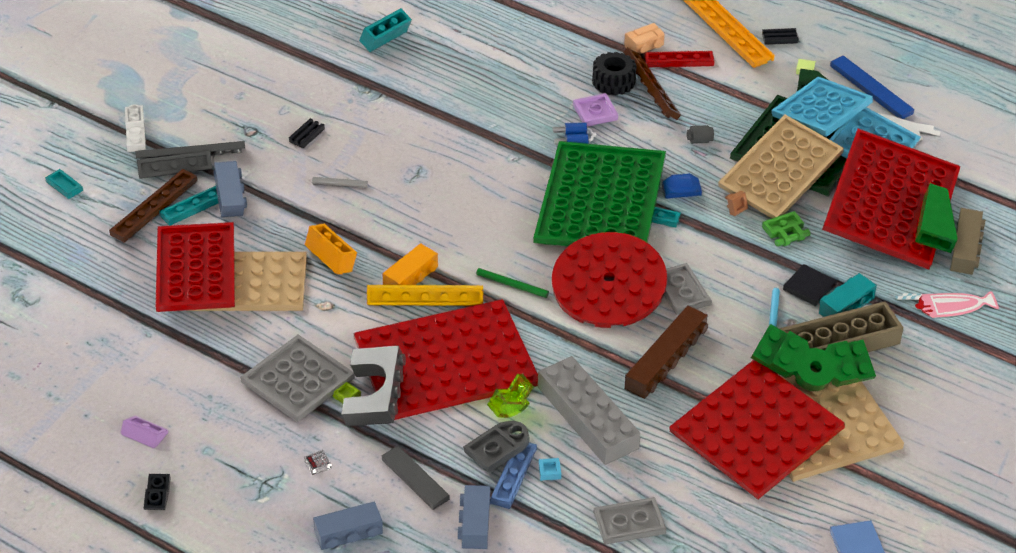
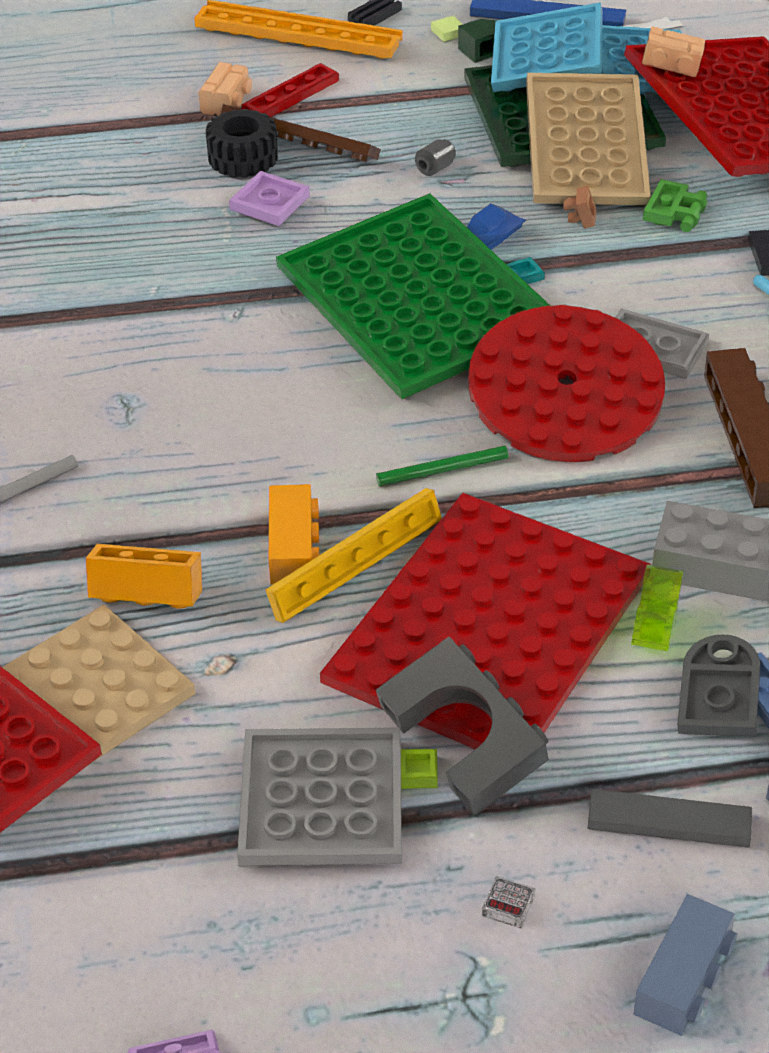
camera: 40 degrees left, 0 degrees up
(574, 133) = (281, 236): blue piece -> none
(872, 145) = (673, 51): none -> light nougat brick

